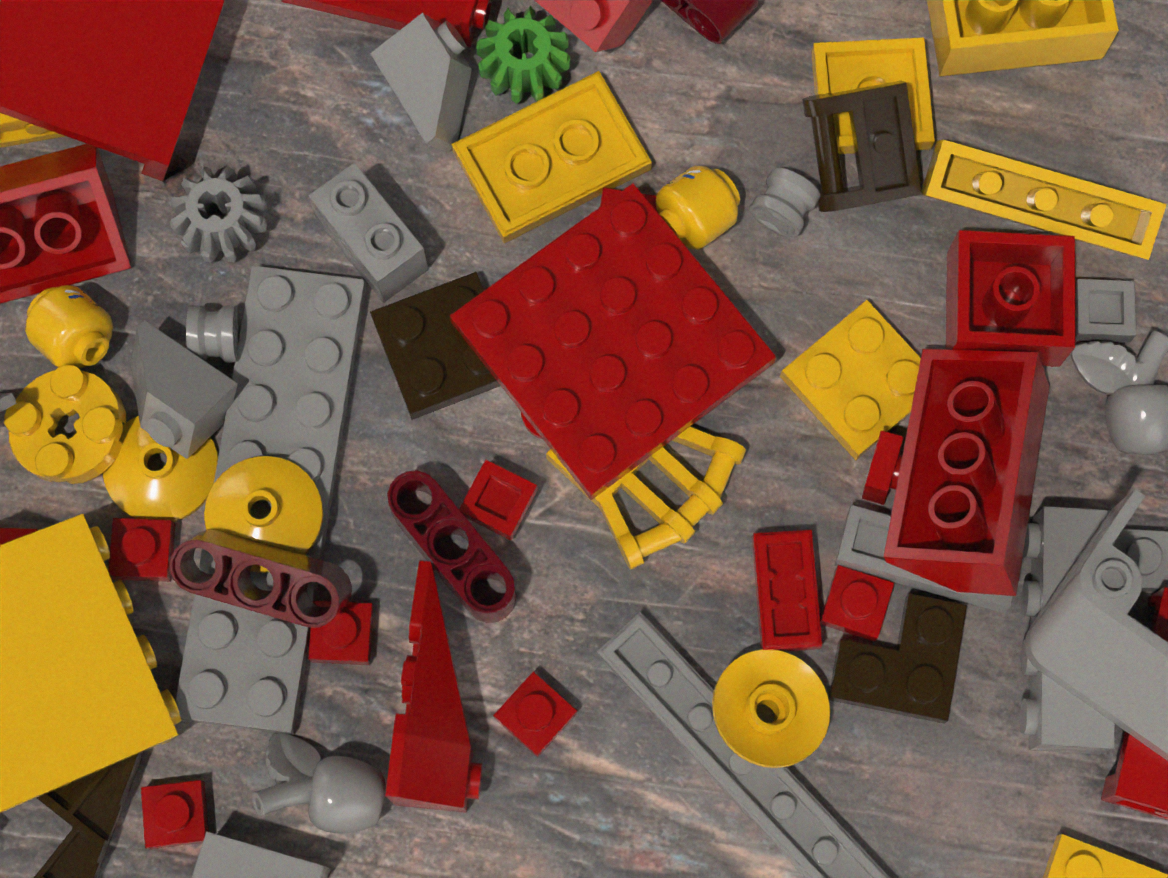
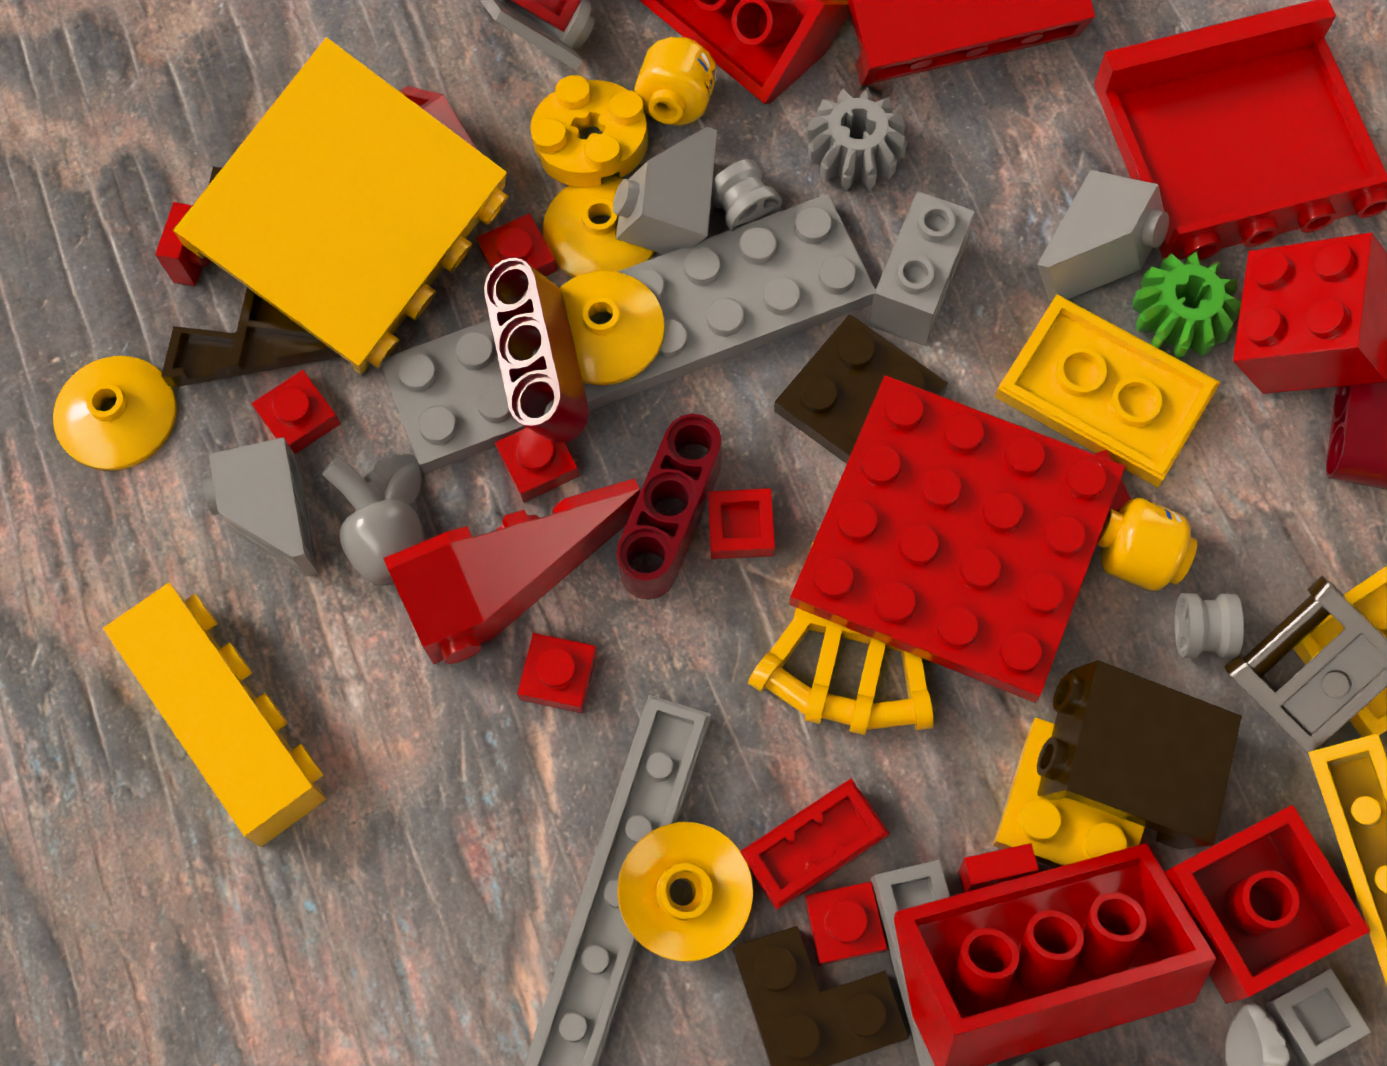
camera: 65 degrees right, 5 degrees down
(856, 313) = (1139, 753): none -> dark brown panel

